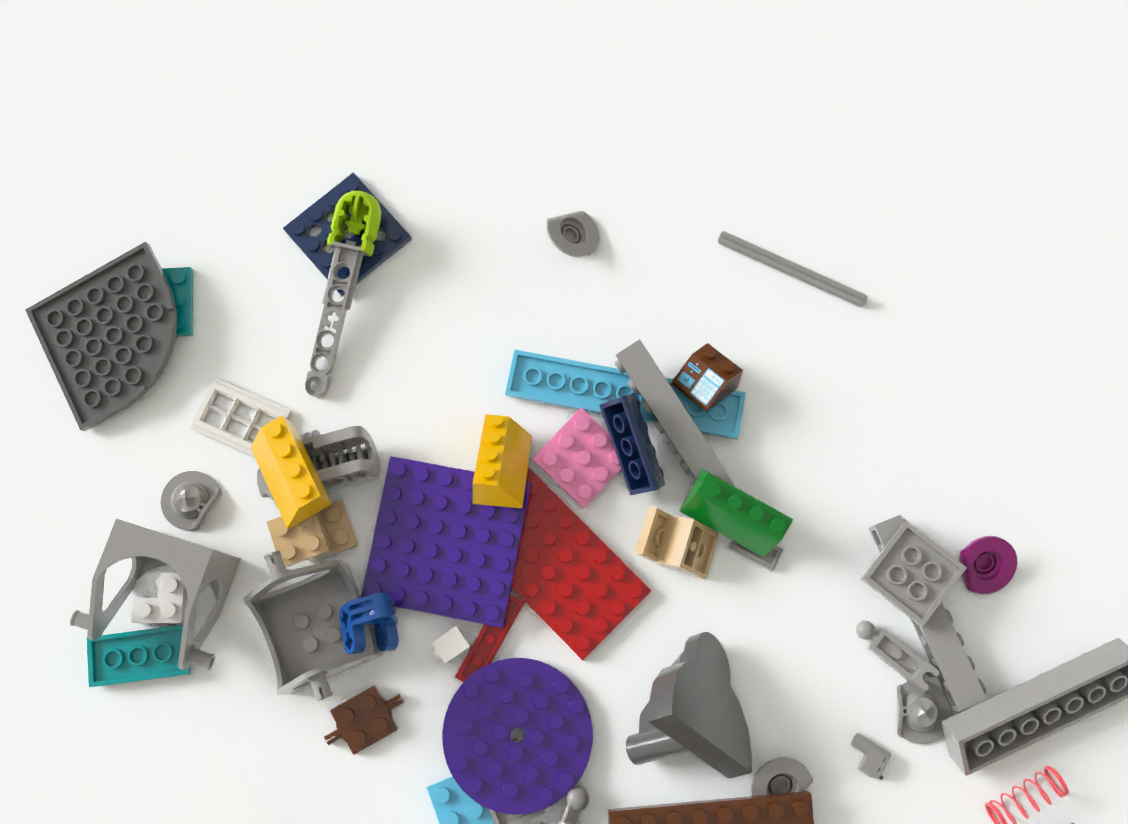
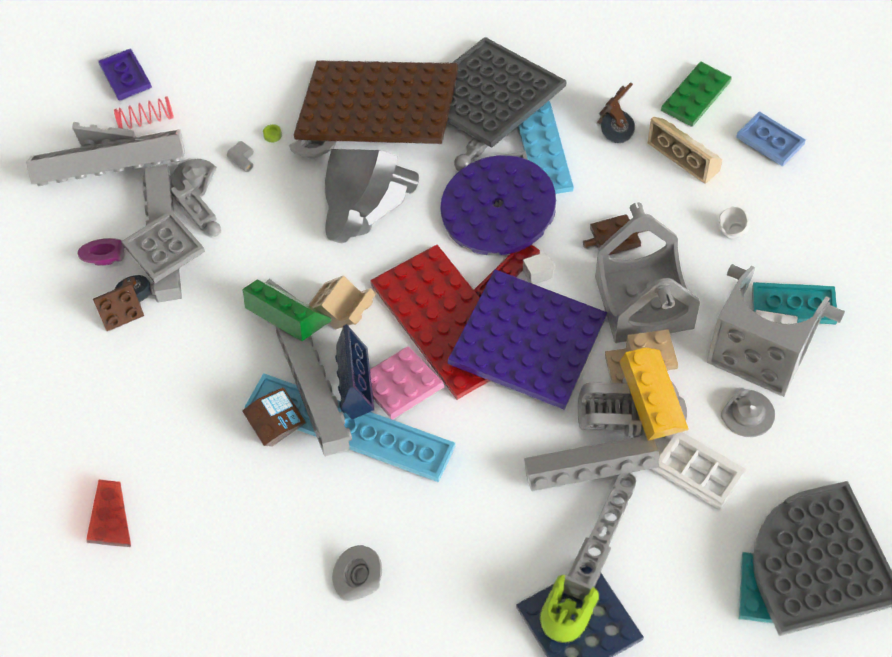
camera: 165 degrees left, 20 degrees down
(214, 762) = (734, 222): none -> white hair
(354, 395) = (591, 462): none -> light grey brick
(372, 610) = (595, 284): blue piece -> none
(501, 463) = (469, 376): yellow slope -> none
(792, 269) = (165, 508): light grey axle -> none
(843, 806) = (272, 133): none -> lime tile
(844, 247) = (108, 517): none -> clear red wing
(926, 509) = (123, 302): none -> reddish brown plate
(1057, 744) = (95, 135): none -> light grey wing

